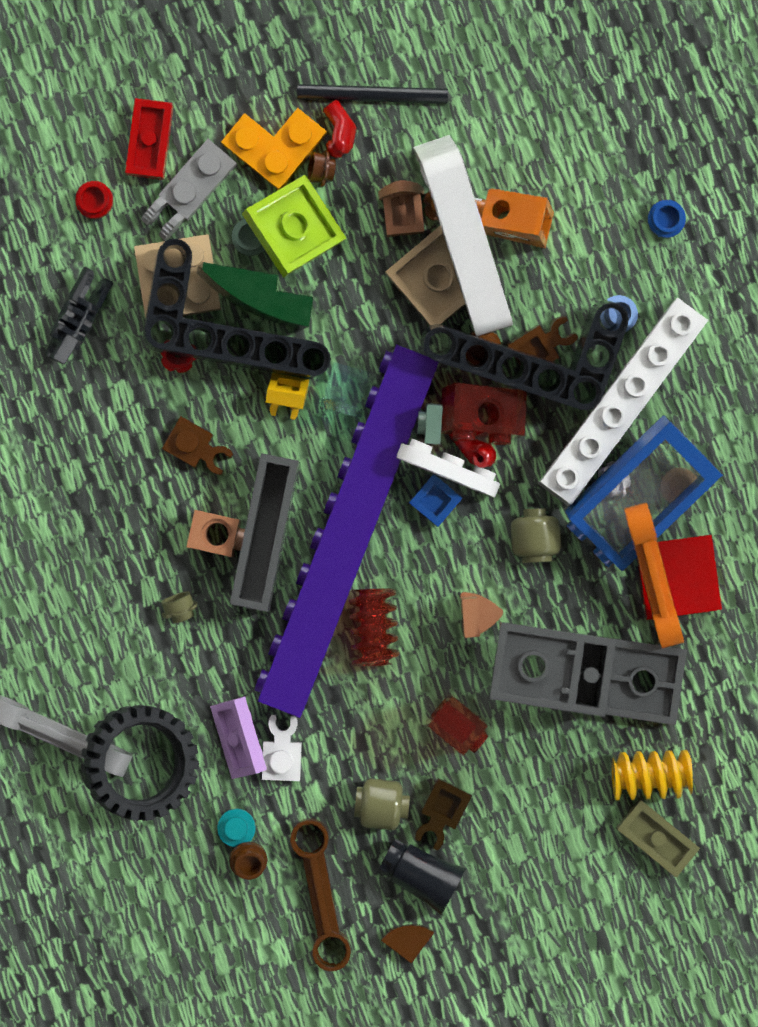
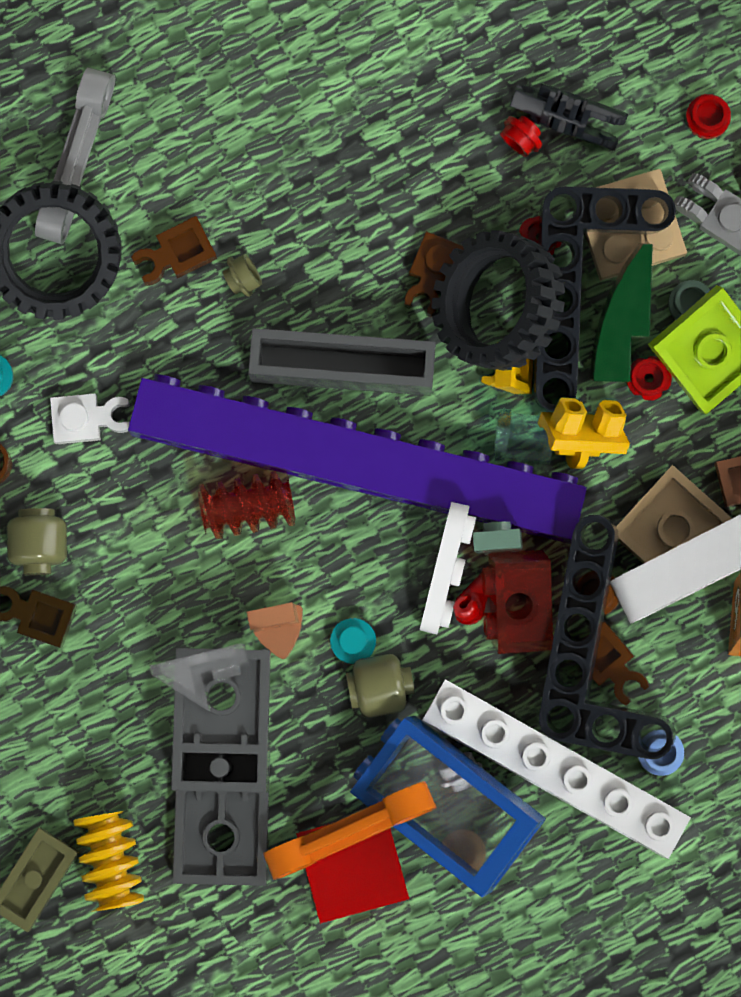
camera: 80 degrees right, 5 degrees down
(90, 358) = (521, 135): none -> red plate
(150, 654) = (182, 248): none -> reddish brown plate
(199, 530) = (333, 286): nougat brick -> none
(221, 430) = (537, 311): none -> black tyre
(238, 738) = (96, 364): lavender plate -> none
(312, 270) = (649, 390): none -> red plate
(351, 340) = (583, 434): none -> yellow hips
(435, 500) = (407, 560): blue plate -> none
(458, 725) = (141, 618): clear red brick -> none
(495, 553) = (352, 640): none -> teal plate
(514, 692) = (188, 673): none -> clear slope

